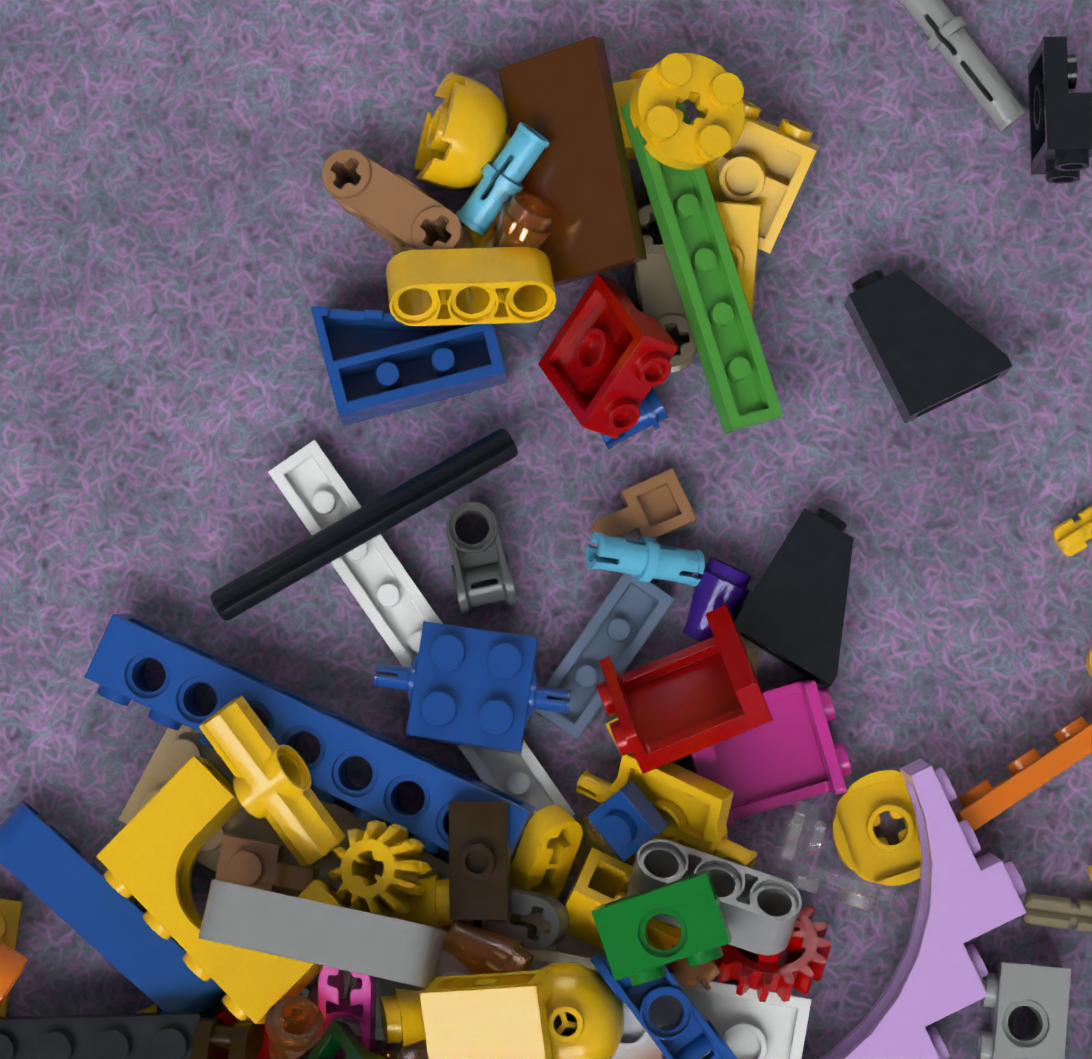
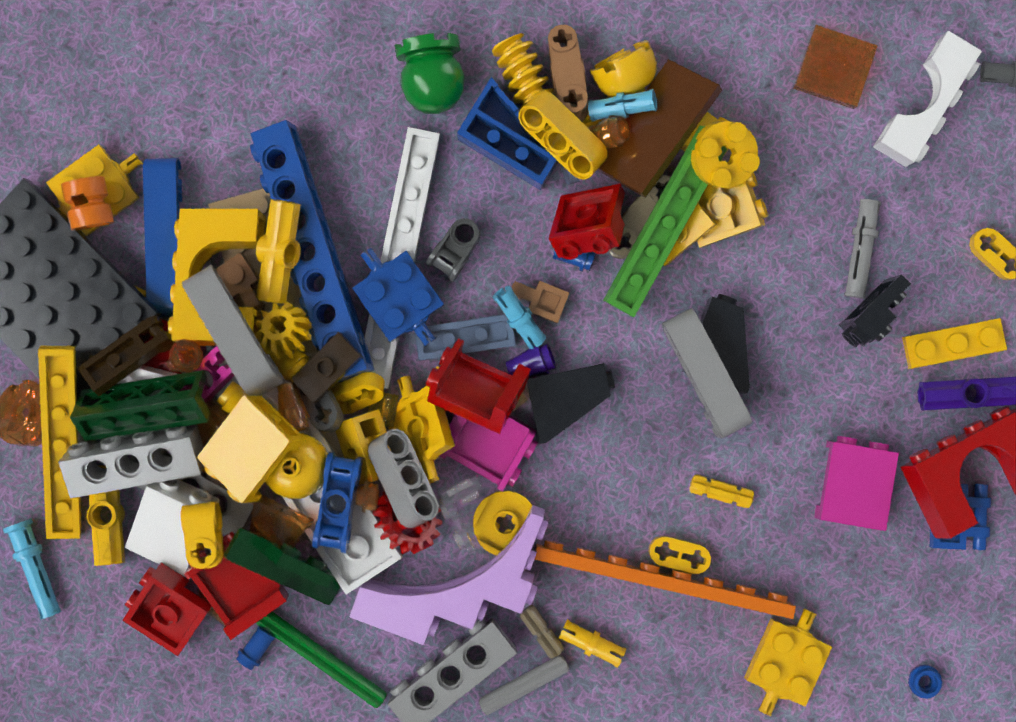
camera: 45 degrees right, 5 degrees up
(234, 379) = (431, 75): none -> green tile
(333, 263) = (519, 68): none -> yellow piece
(364, 524) = (423, 187): black axle -> none
(625, 928) = (387, 470): green brick -> none
(627, 820) = (403, 413): blue plate -> none
(941, 392) = (707, 374): none -> light grey beam

